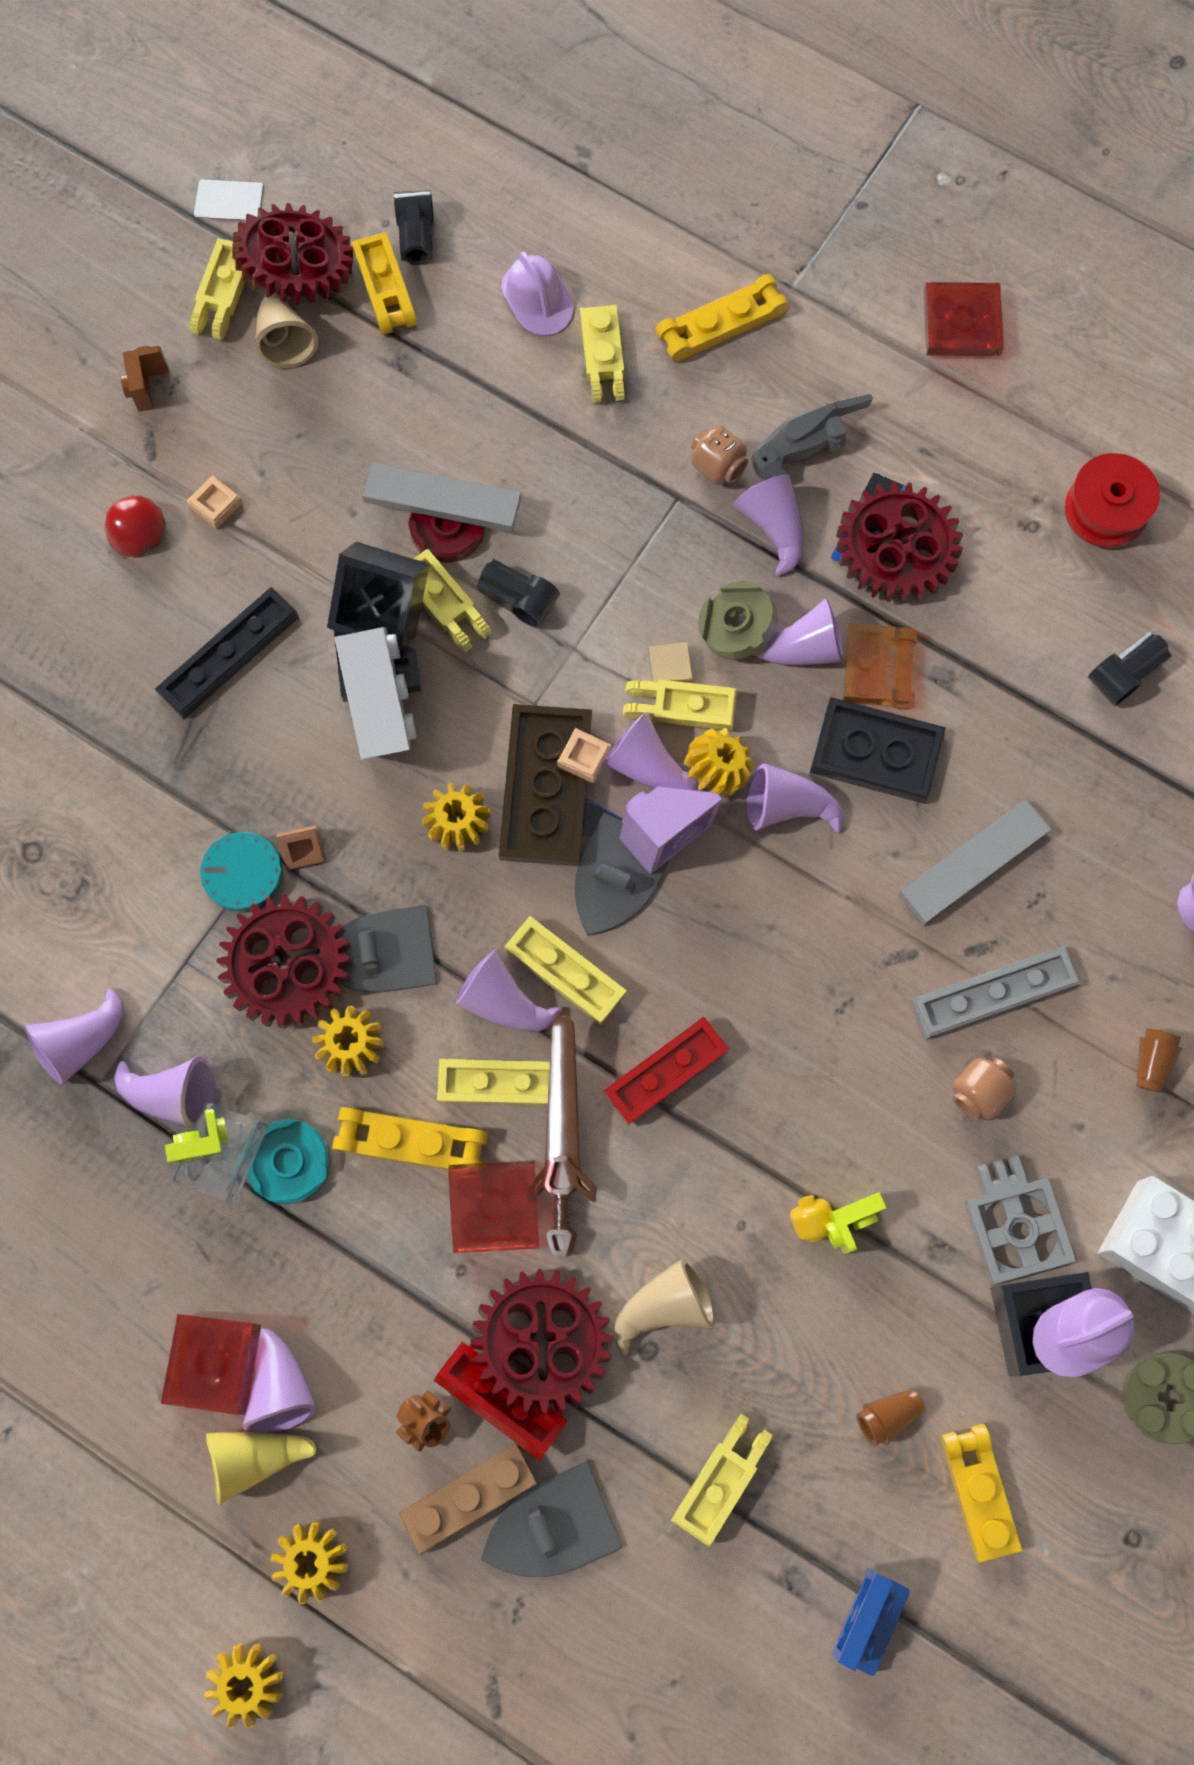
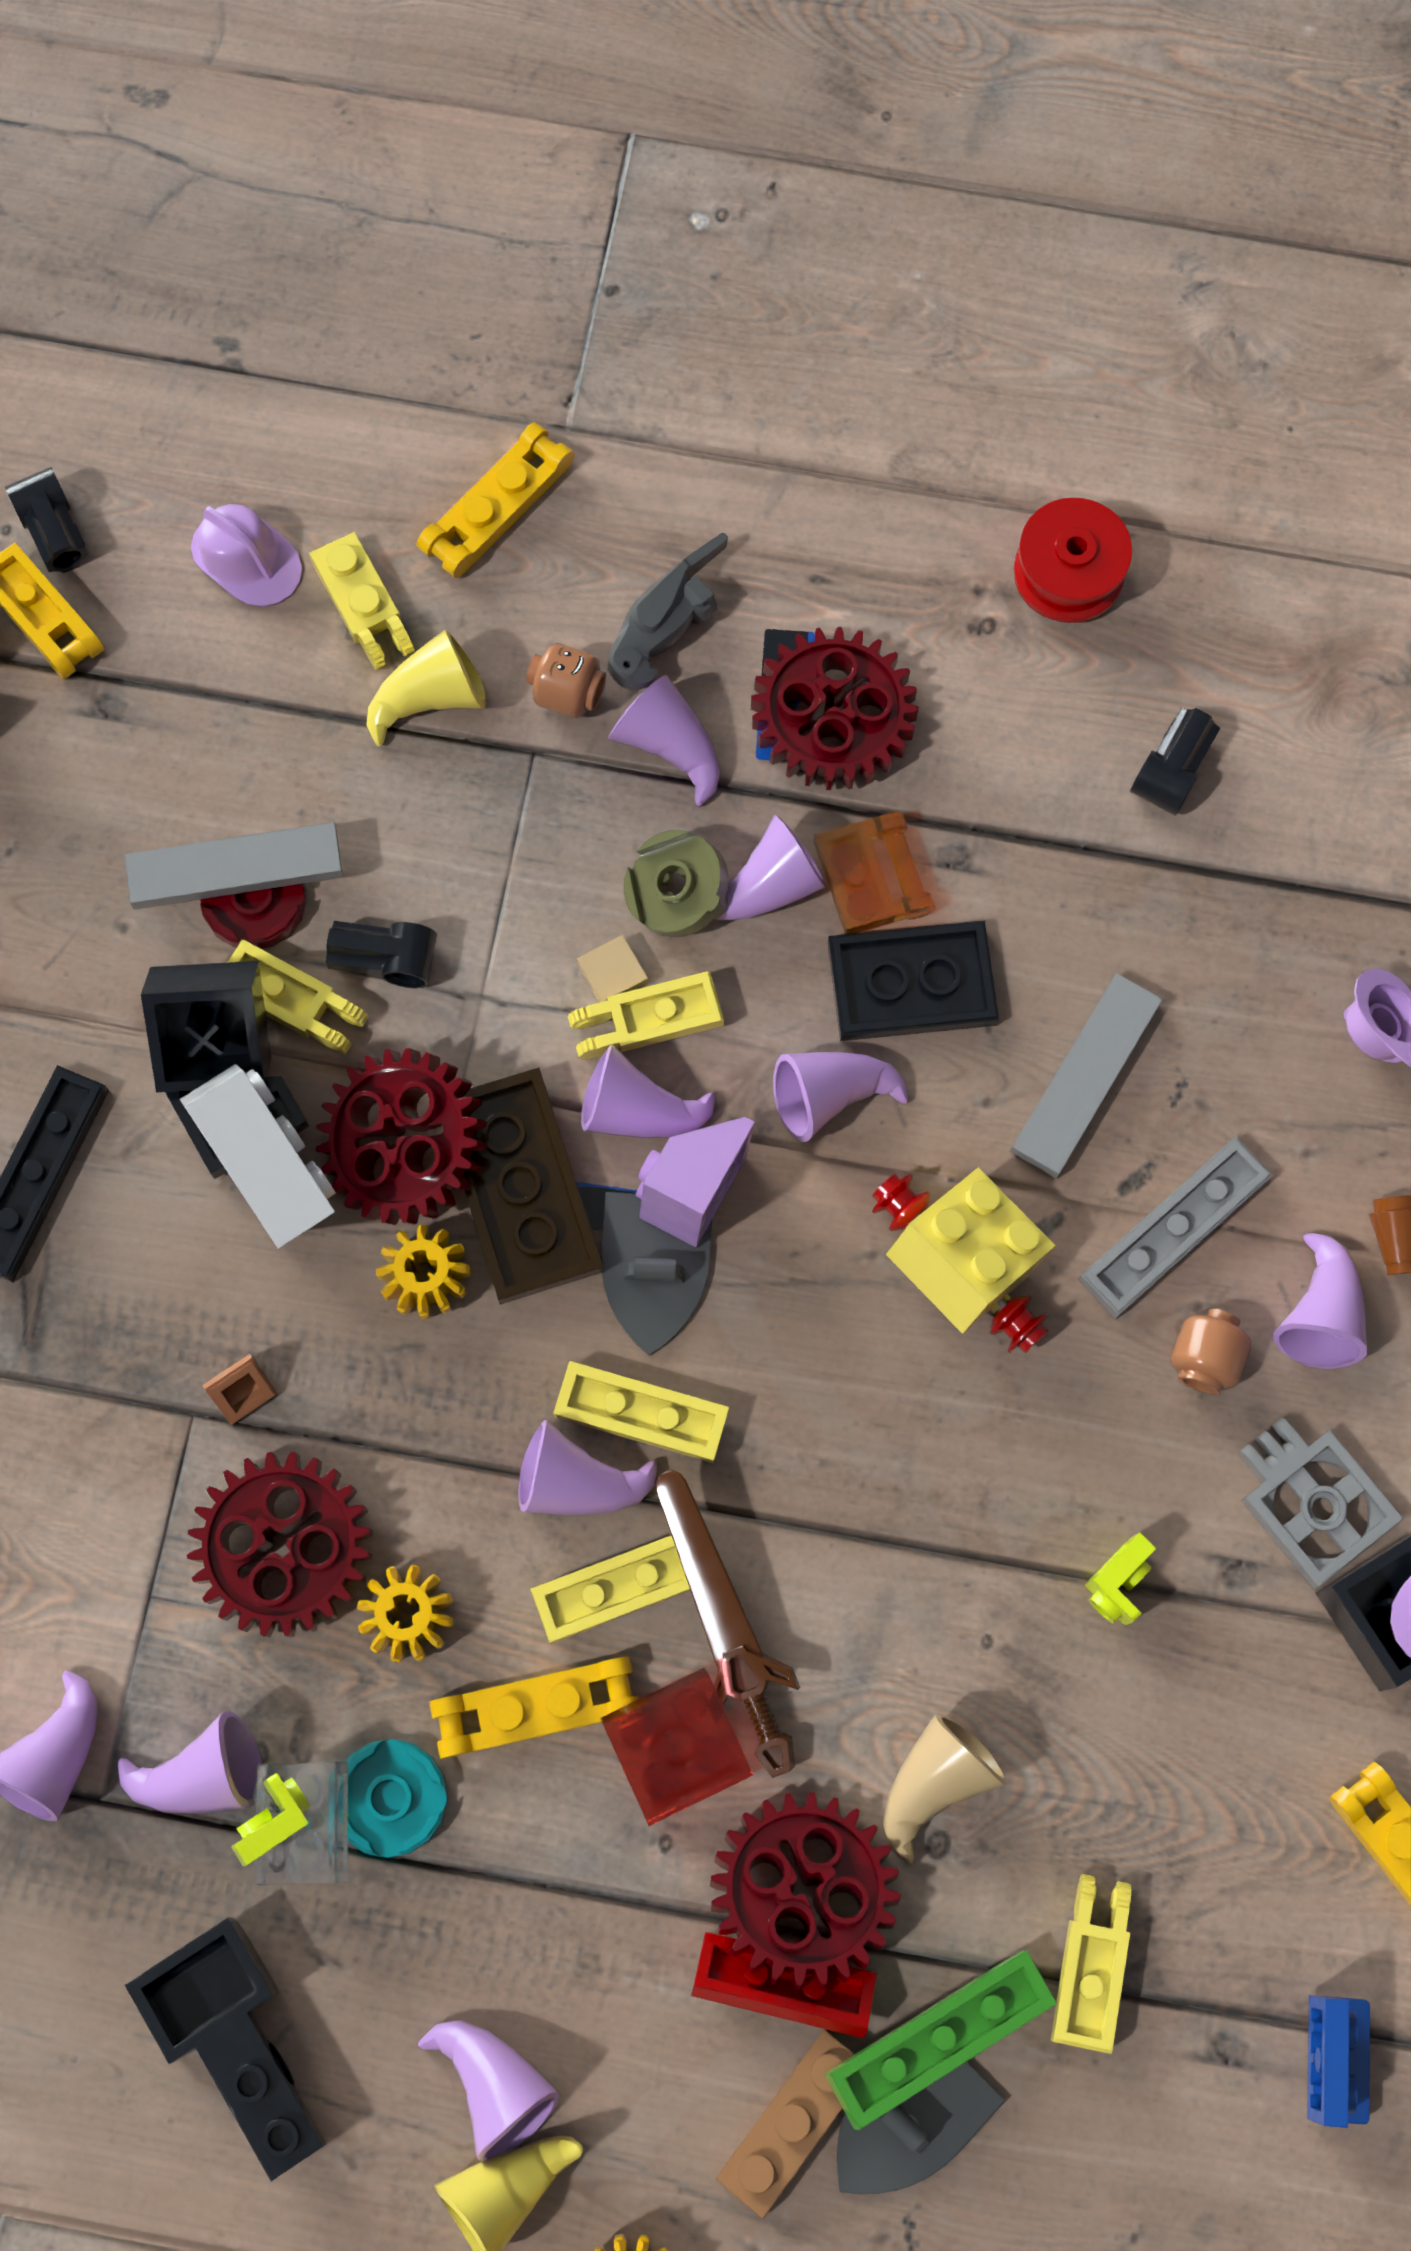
camera: 25 degrees left, 0 degrees up
(107, 1246) = (205, 2003): none -> black plate
(211, 1364) = (402, 2096): clear red plate -> none
(241, 871) = (173, 1451): teal tile -> none
(389, 951) = (407, 1476): dark grey shield -> none
(423, 1421) = (699, 2051): dark orange gear -> none
(488, 686) = (404, 1184): none -> dark red gear
(584, 755) = (554, 1130): light nougat tile -> none
(592, 1484) = (940, 2039): none -> bright green plate
(627, 421) = (431, 678): none -> light yellow hat
(666, 1071) = (818, 1488): red plate -> none
(719, 762) = (726, 1073): yellow gear -> none
(810, 1218) = (1068, 1597): yellow piece -> none
(837, 951) = (968, 1253): none -> light yellow brick
(889, 1416) = (1260, 1800): dark orange cone -> none
(963, 319) = (798, 394): clear red plate -> none
(1081, 1098) = (1330, 1319): none -> lavender hat

